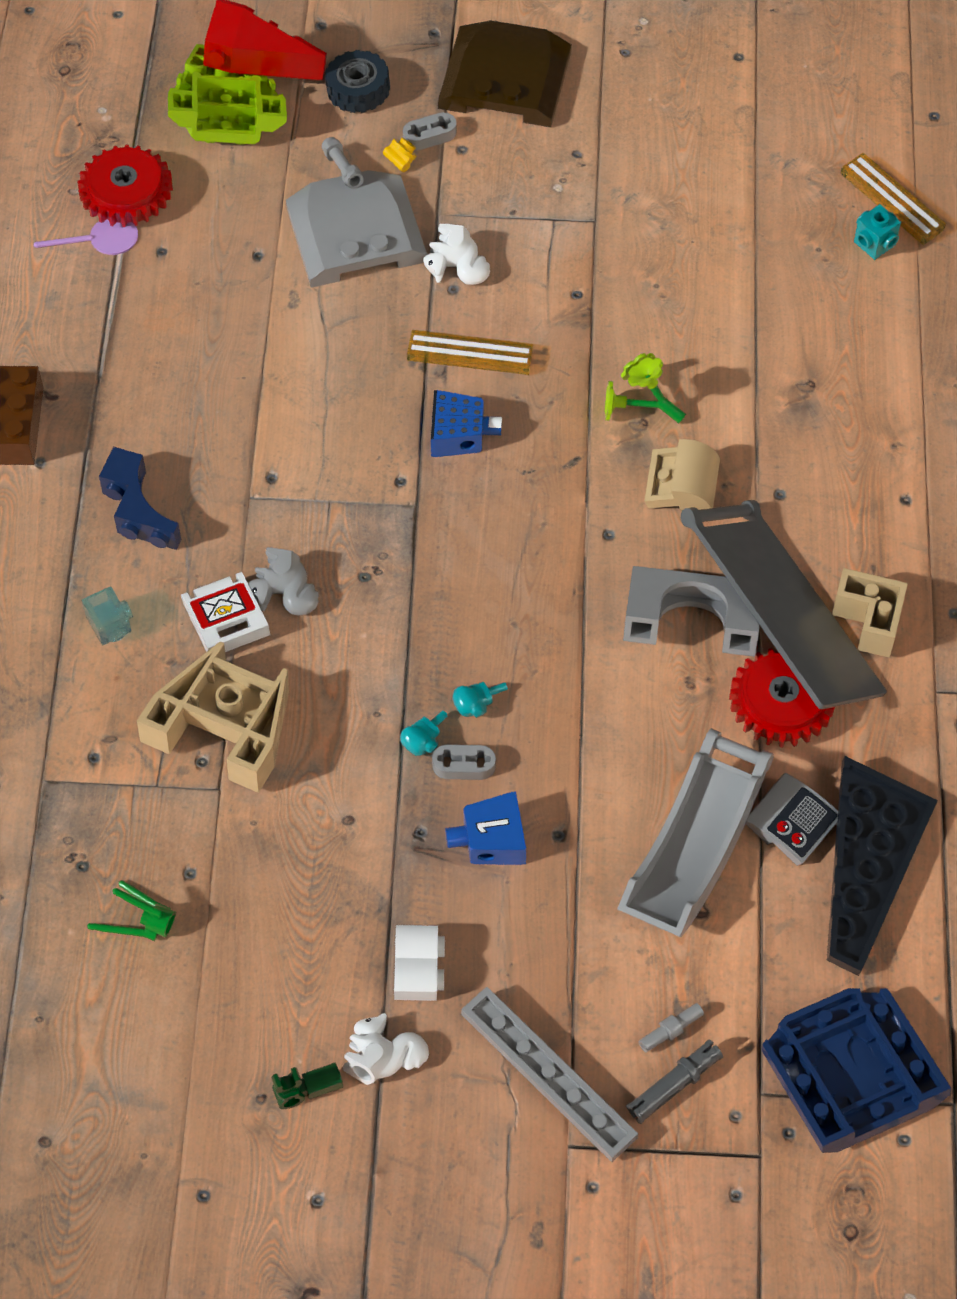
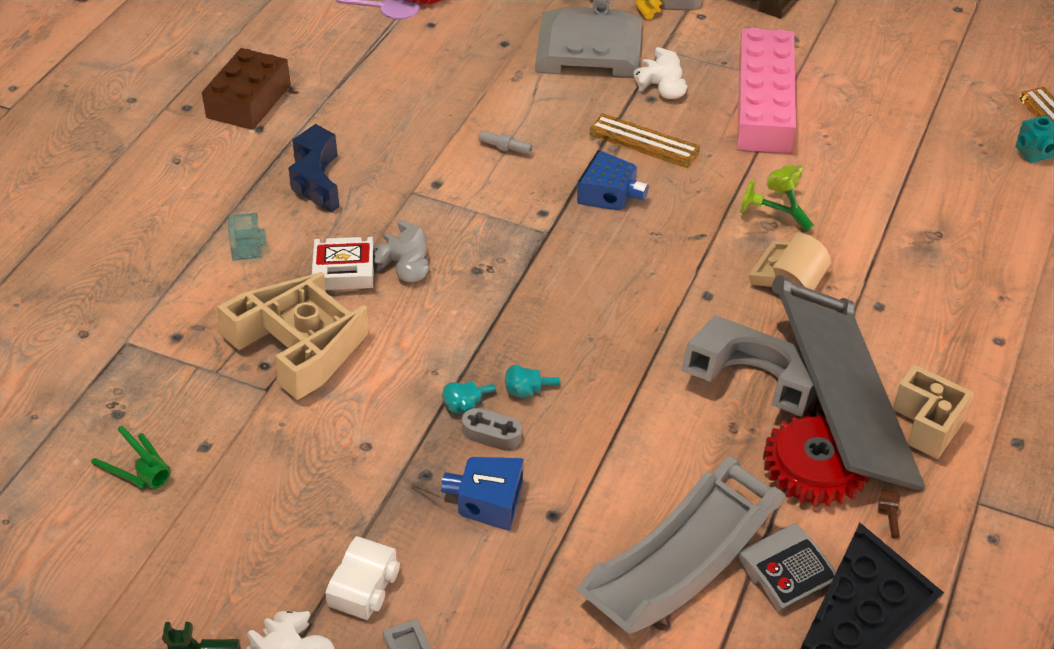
camera: 20 degrees right, 15 degrees down
(324, 401) = (505, 142): none -> light grey bar
(577, 246) = (766, 91): none -> bright pink brick
(862, 720) = (889, 502): none -> reddish brown hand

